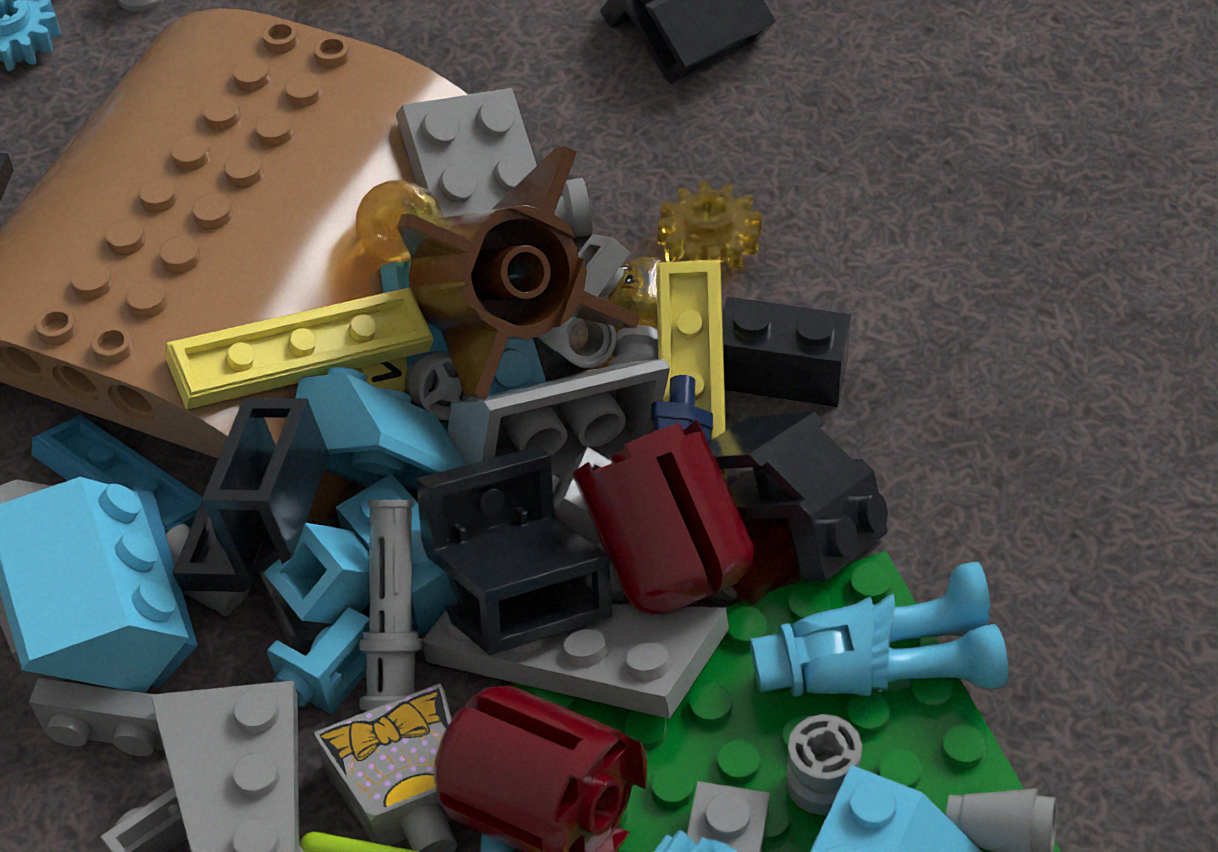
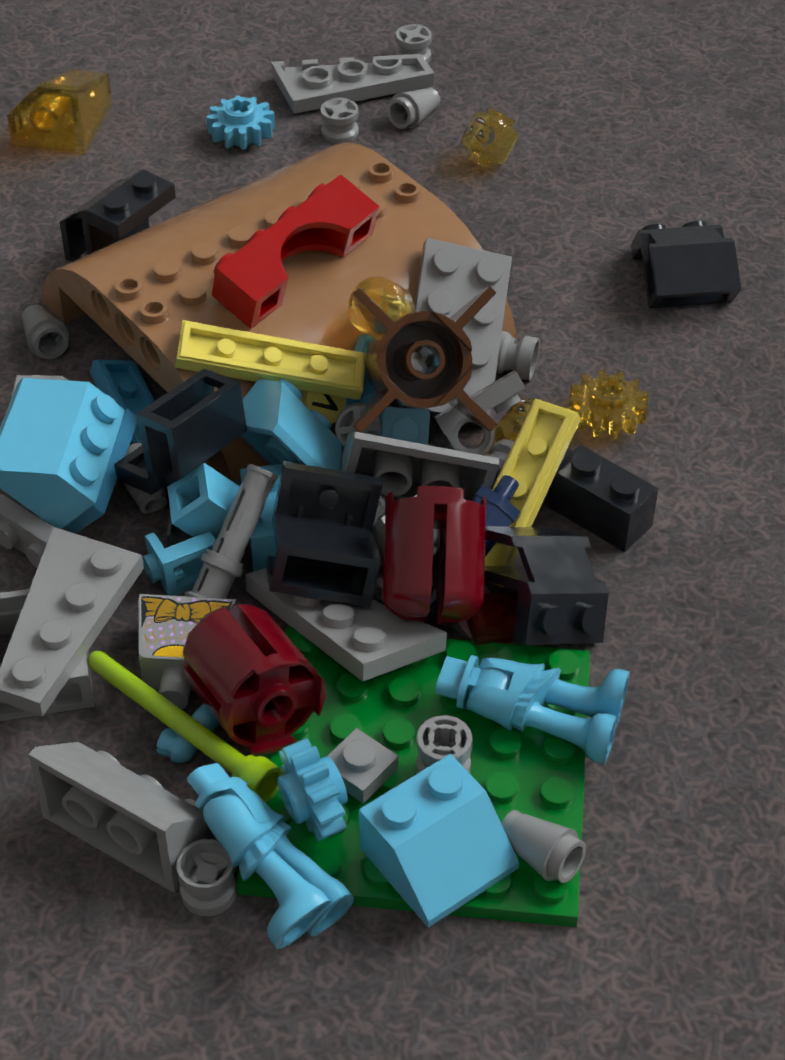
camera: 25 degrees right, 5 degrees down
(229, 243) = (330, 220): none -> red arch

